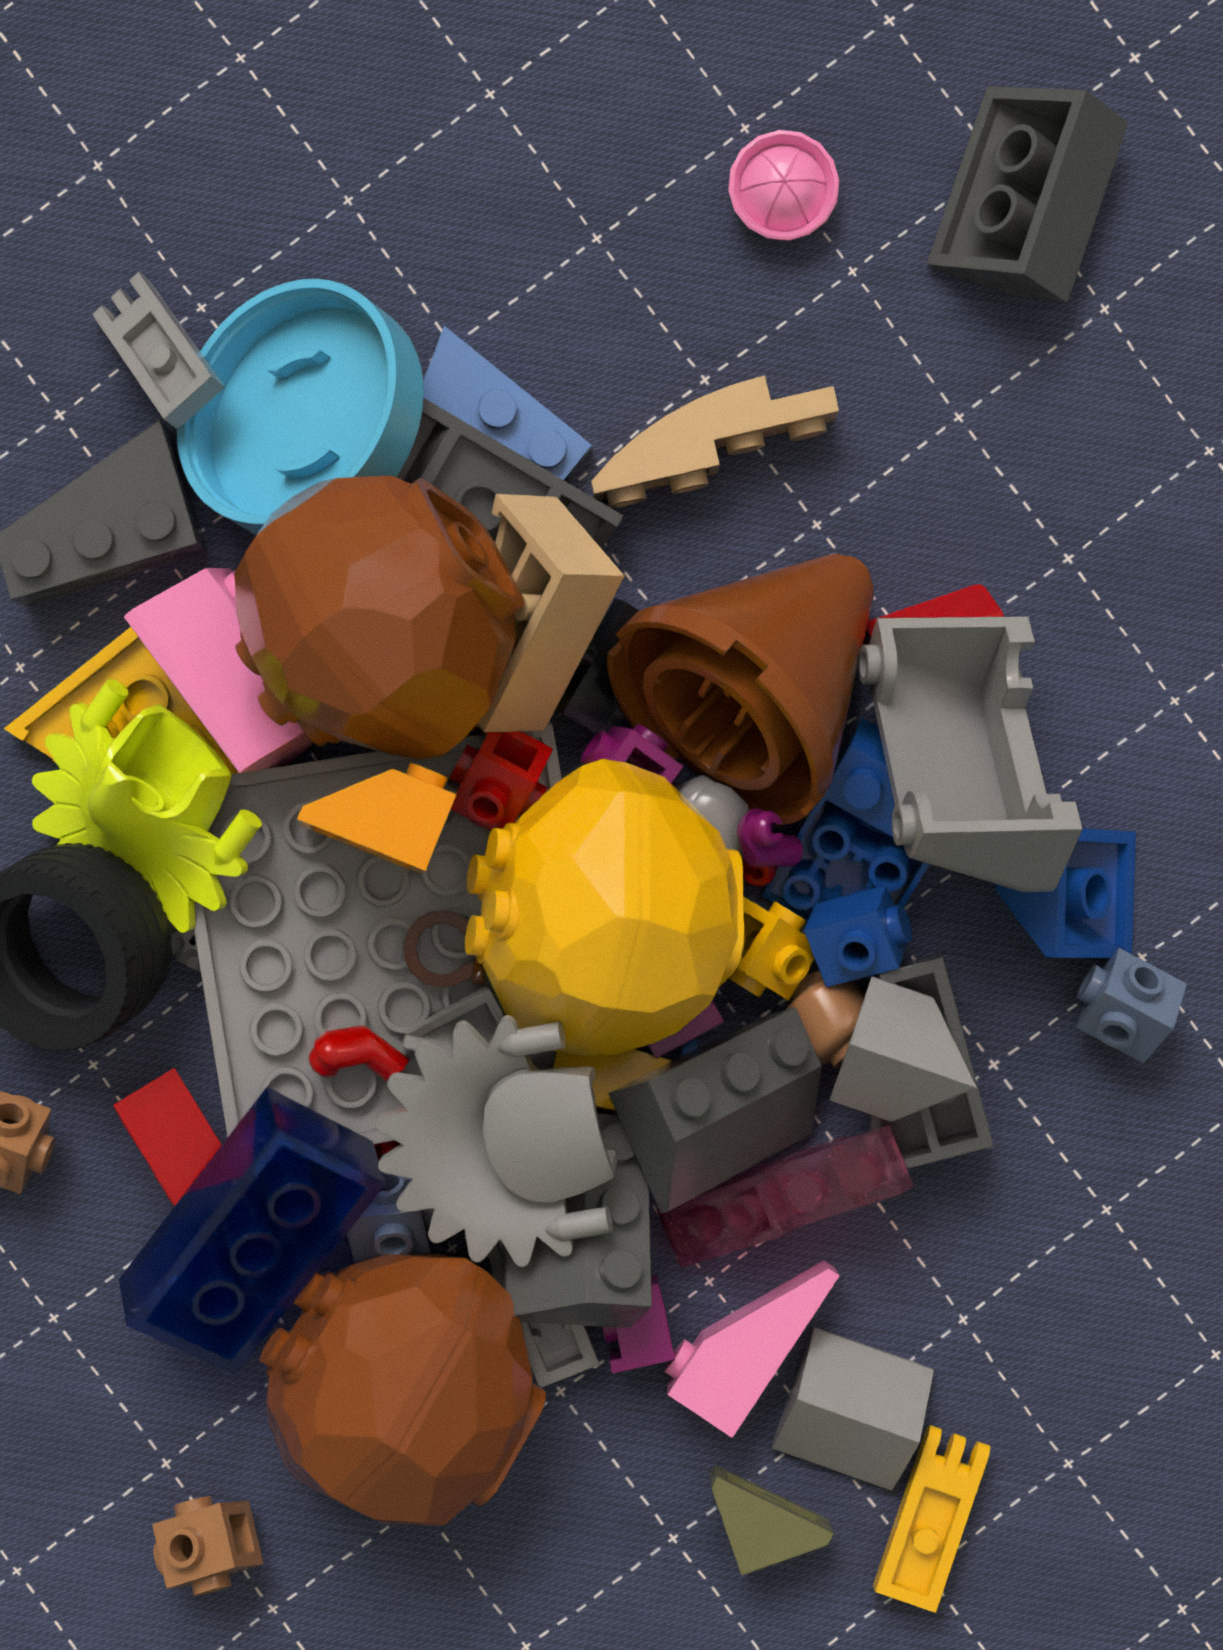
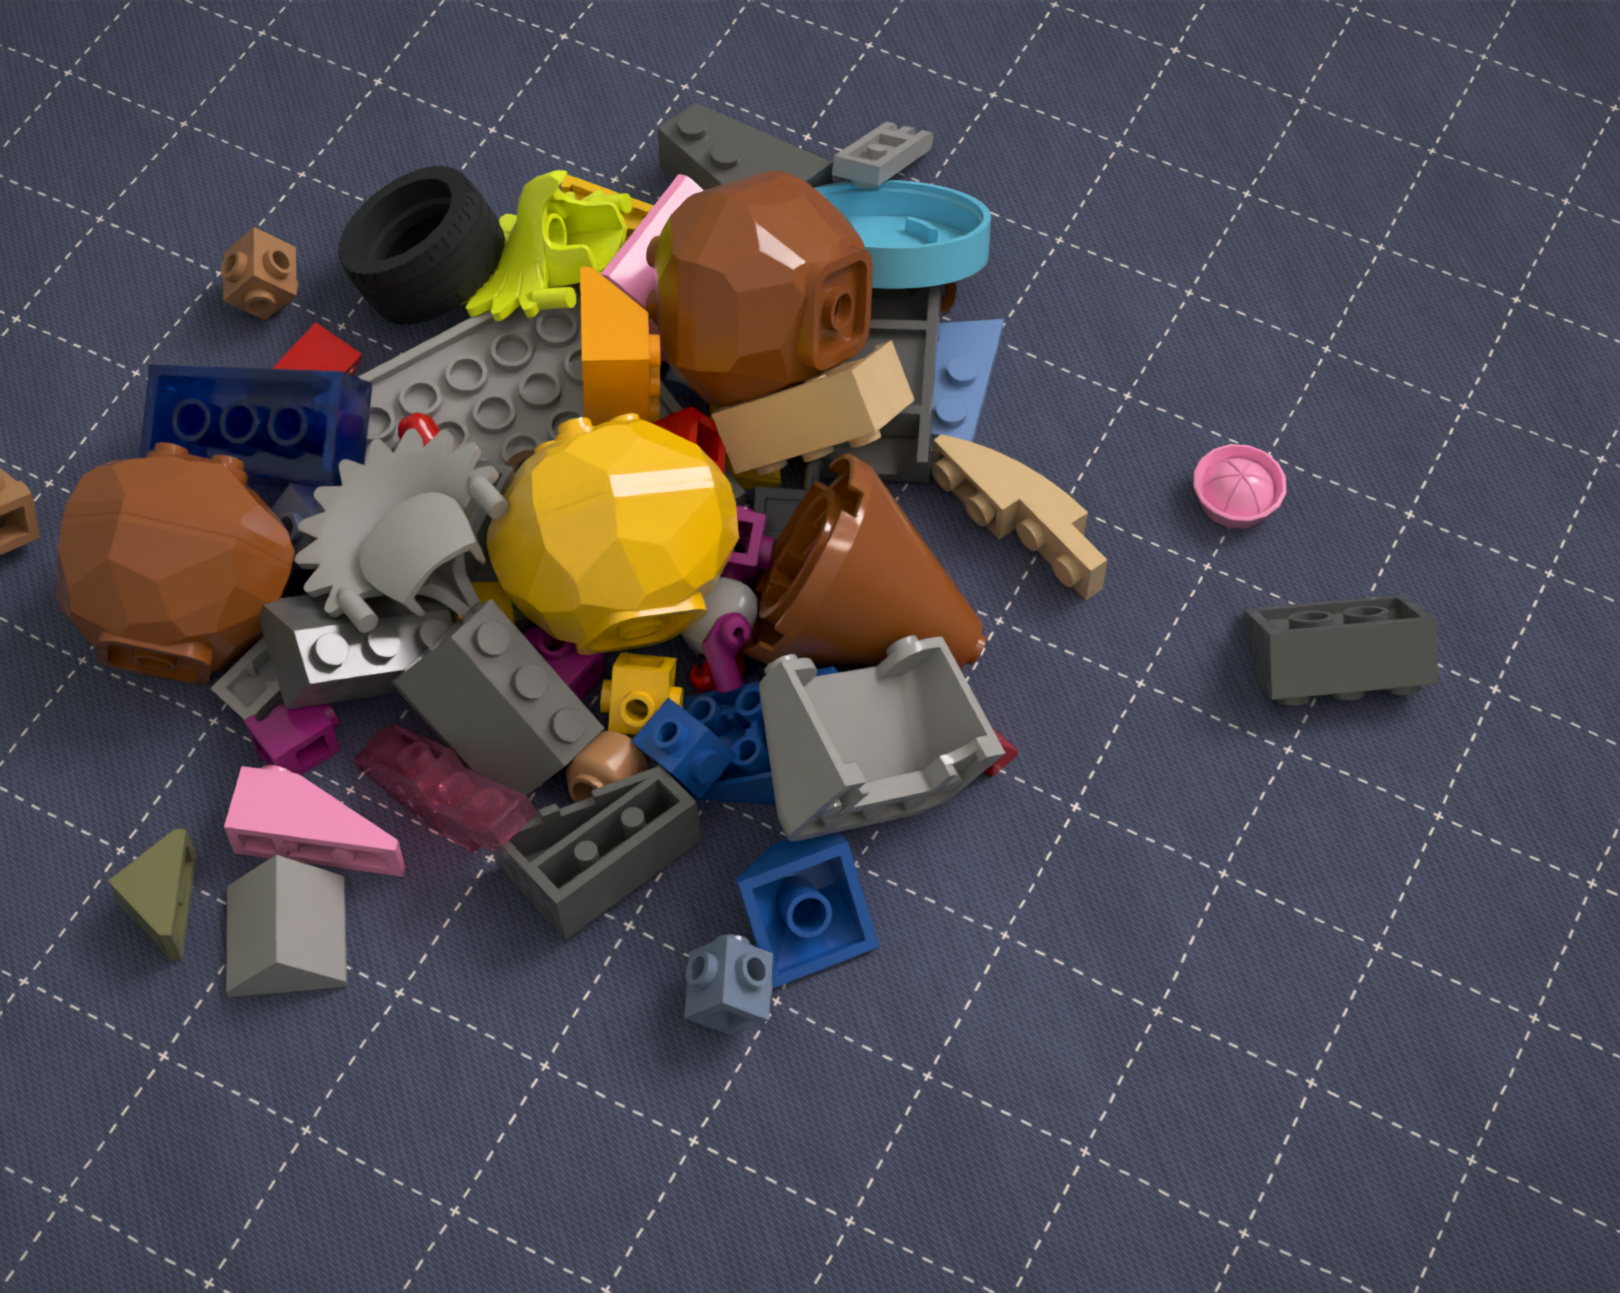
camera: 65 degrees right, 30 degrees down
(899, 1055) = (597, 782): light grey slope -> none
(930, 1521) = (212, 1026): yellow hinge -> none

